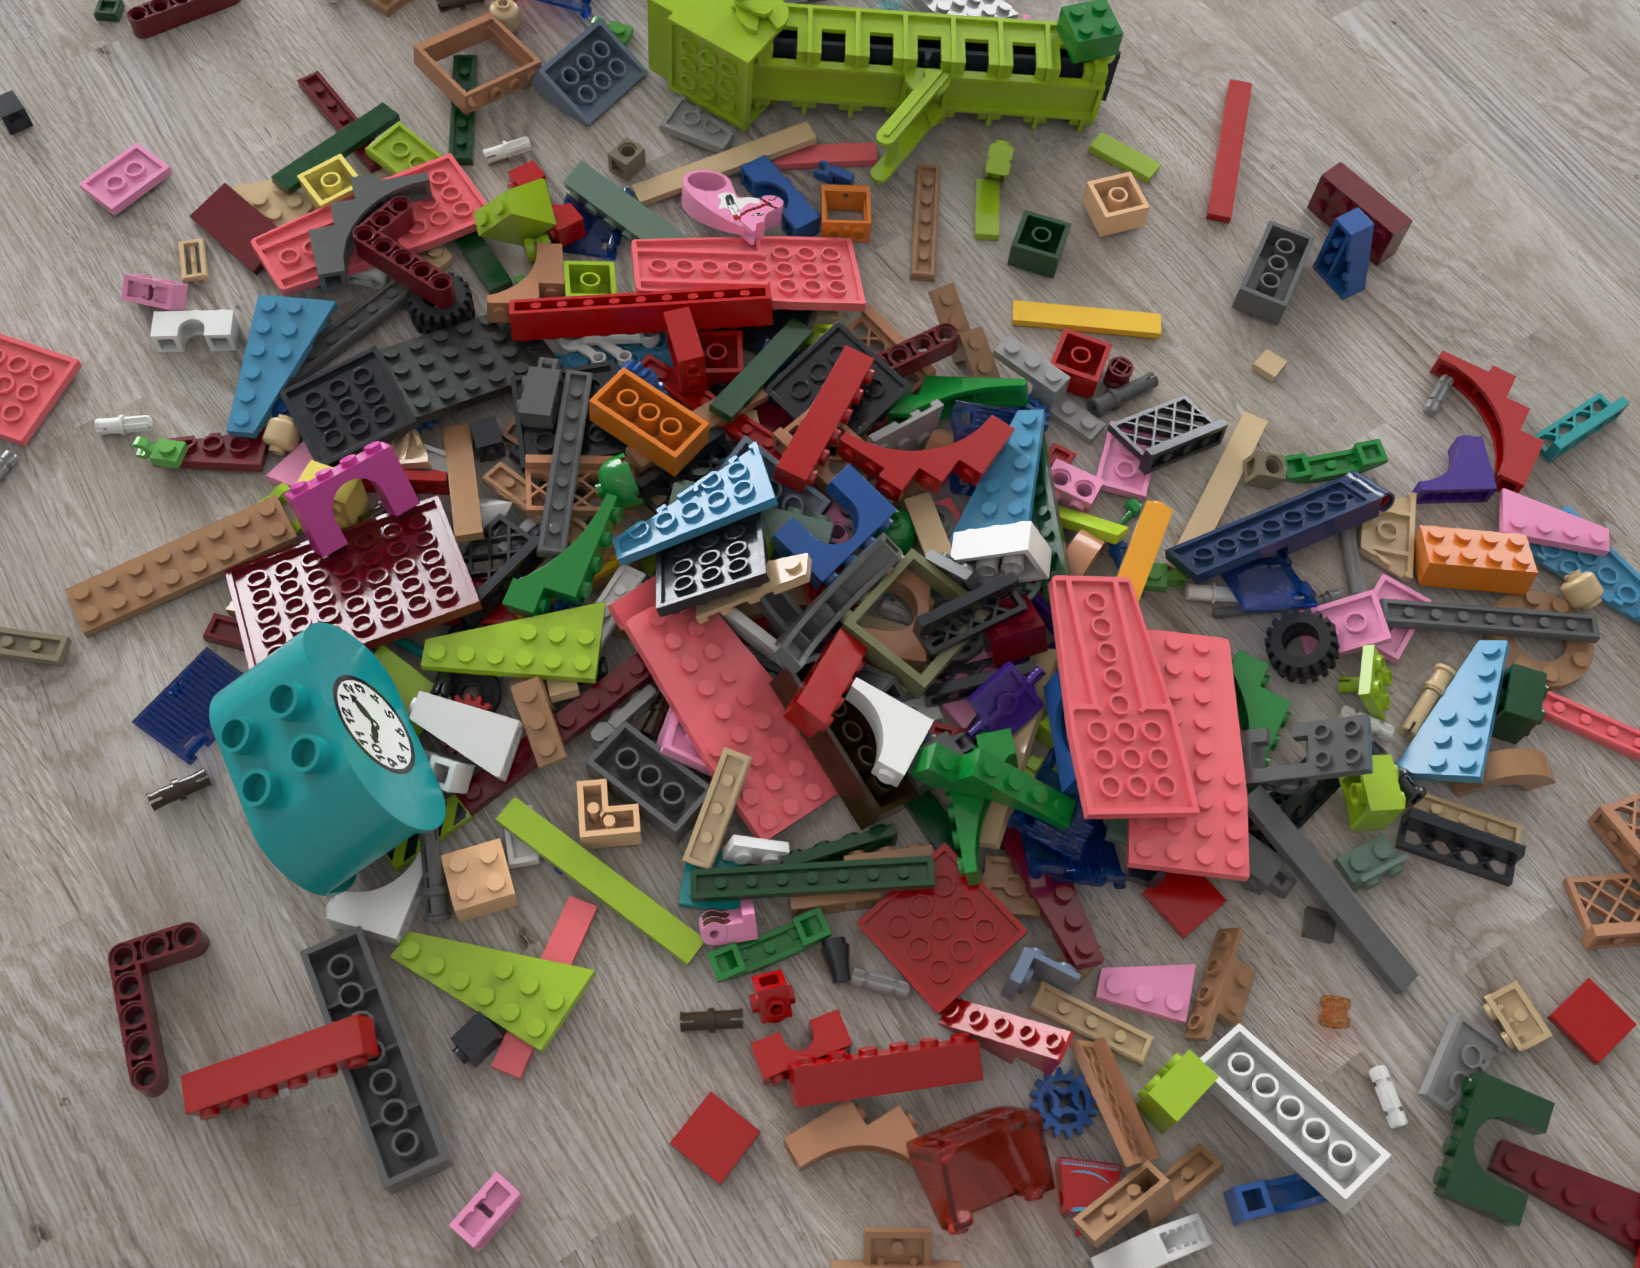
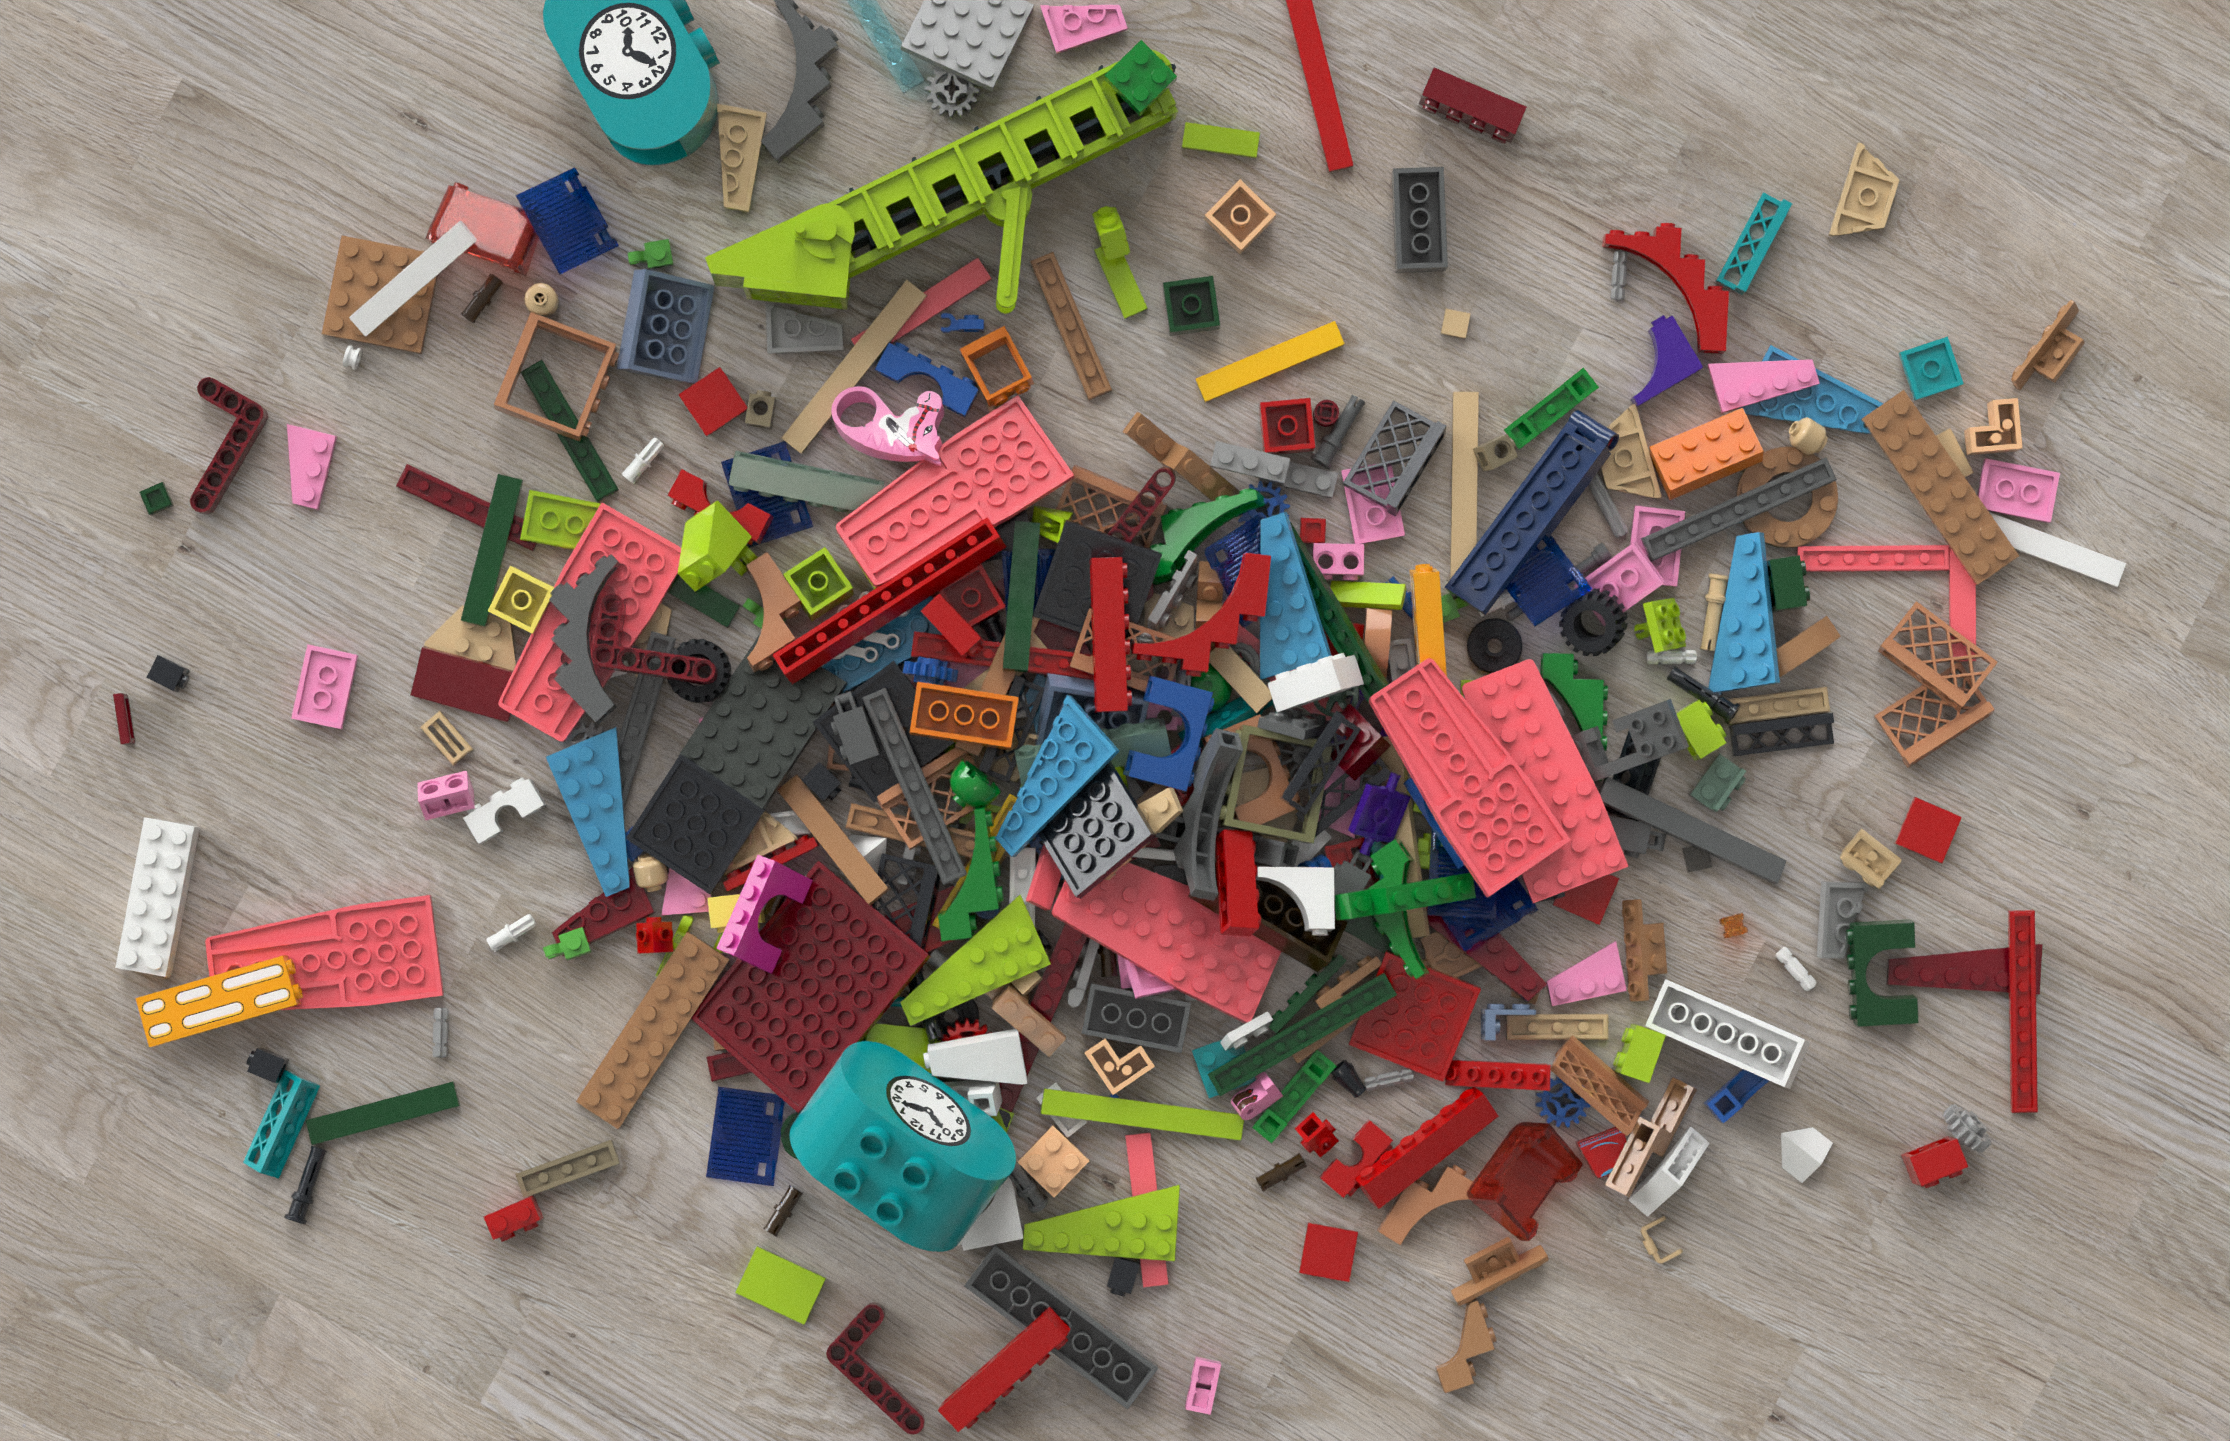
camera: 25 degrees left, 25 degrees up
(122, 863) = (780, 1285): none -> lime tile
(243, 40) = (309, 464): none -> bright pink wing
(244, 485) = (654, 936): none -> red brick
(591, 137) = (713, 401): none -> red tile
(717, 808) = (1203, 1018): tan tile -> none
(1133, 509) = (1399, 549): green hand -> none
(1191, 615) = (1494, 629): none -> black wheel
(1346, 254) = (1481, 171): blue wedge -> none

